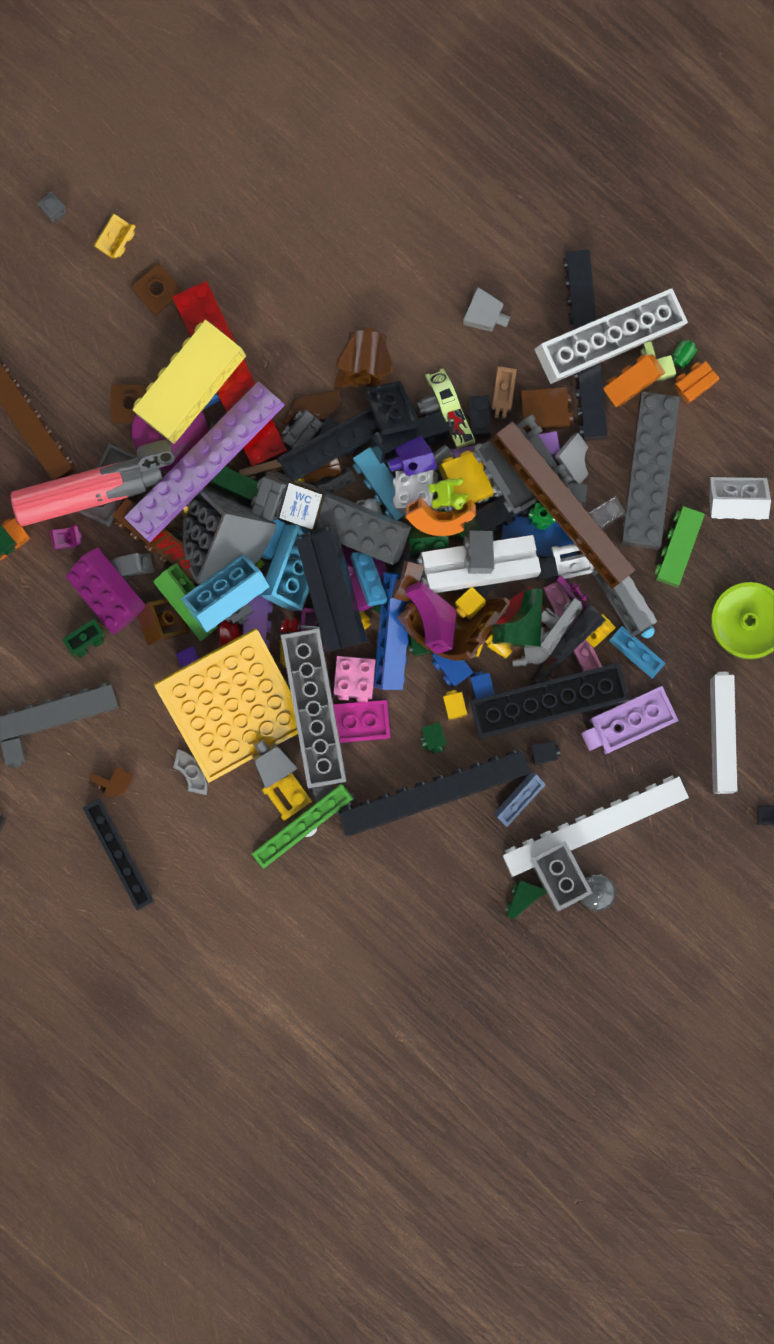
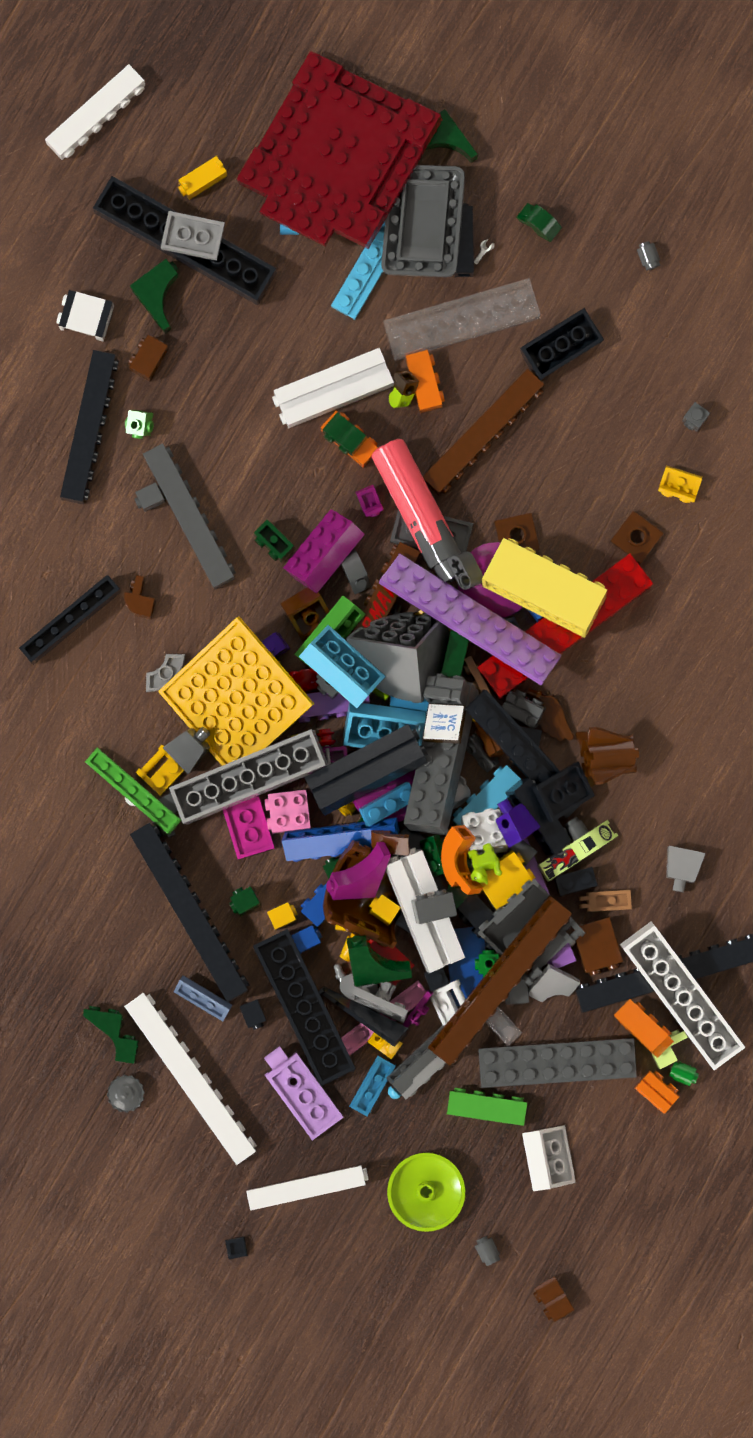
camera: 80 degrees right, 0 degrees up
(561, 876) = (132, 1052): light grey brick -> none

